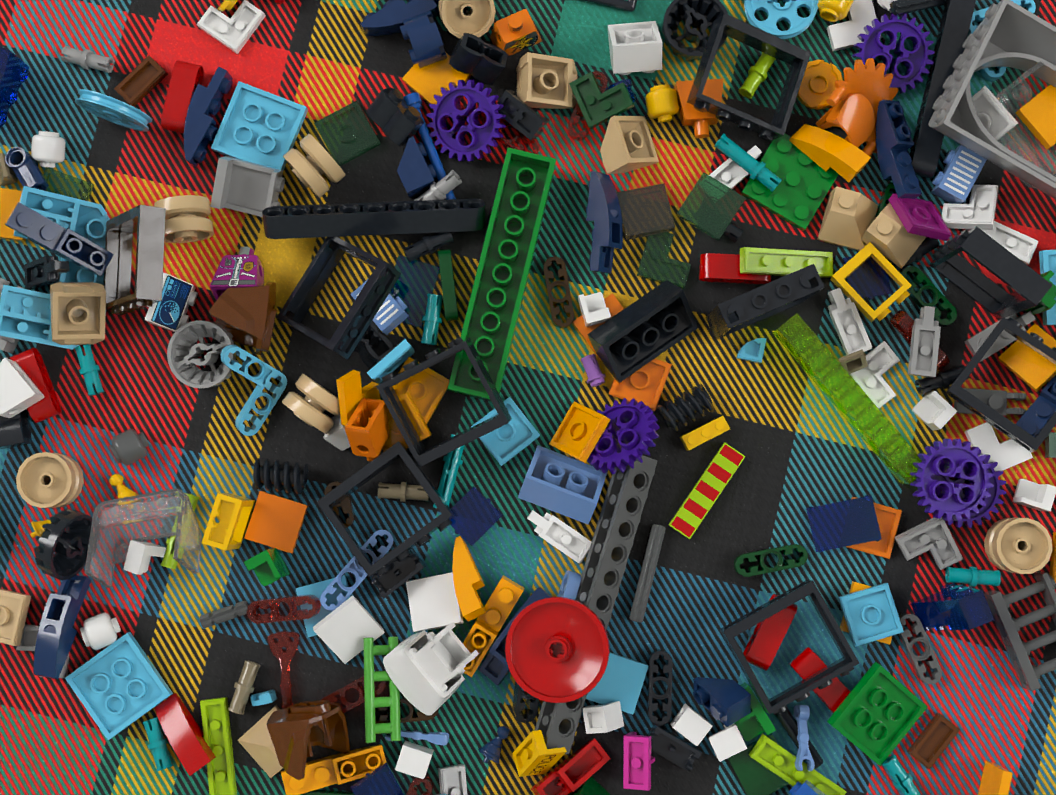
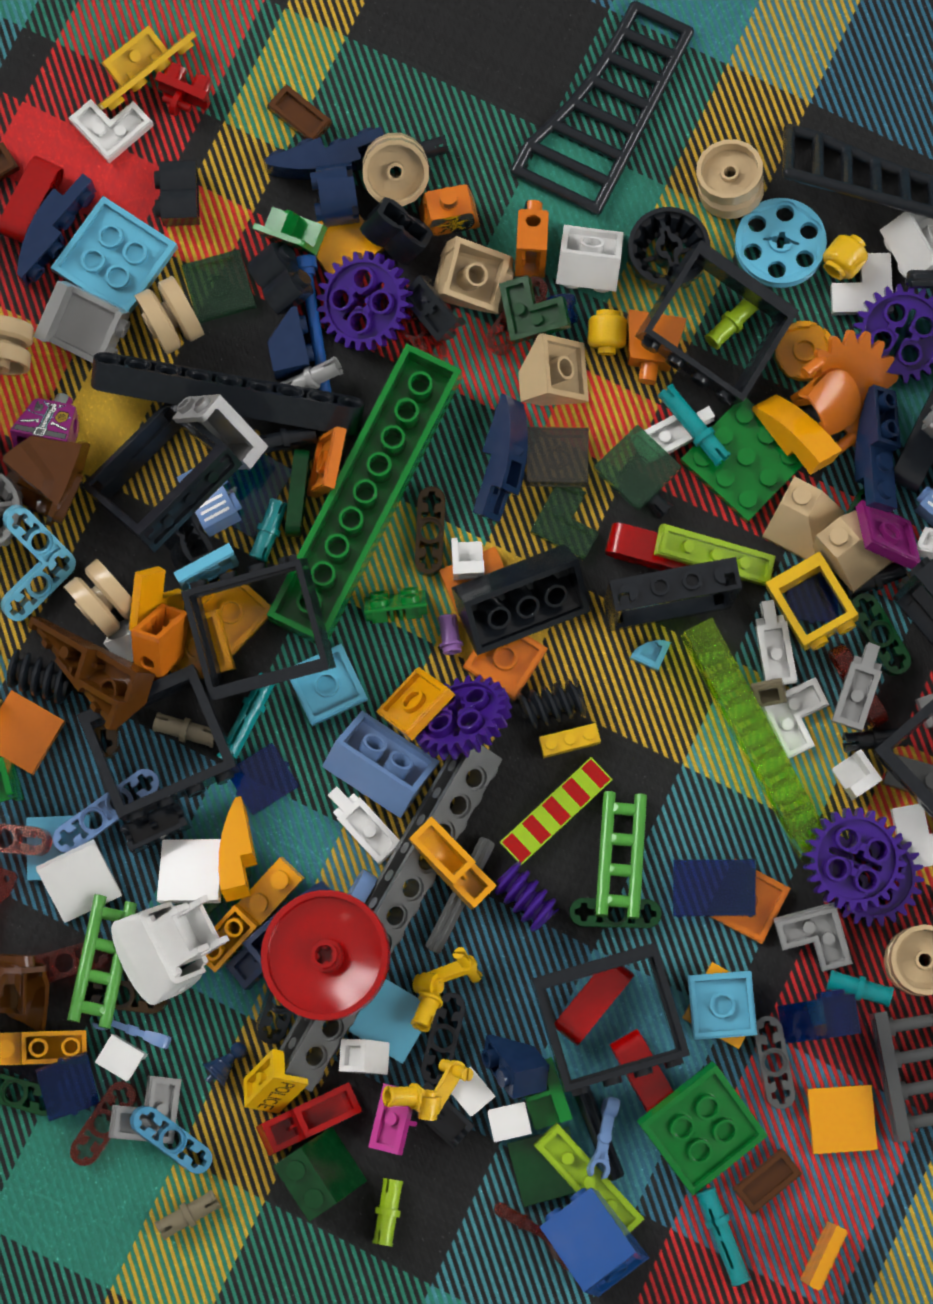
camera: 10 degrees right, 5 degrees down
(298, 66) = (178, 193): none -> black brick
(337, 470) = (108, 681): none -> reddish brown wedge
(379, 244) = (225, 423): none -> light grey panel
(396, 76) = (292, 230): none -> green panel
(466, 256) = (326, 462): none -> orange tile
(534, 358) = (380, 602): none -> green hinge
(586, 43) = (531, 240): none -> orange torso
(638, 552) = (452, 863): none -> light orange slope
(642, 648) = (431, 985): none -> yellow pin
(662, 744) = (429, 1102): none -> yellow pin
(699, 563) = (526, 897): none -> dark purple piece
(756, 527) = (606, 868): none -> bright green bar
(980, 680) = (841, 1119): none -> light orange tile

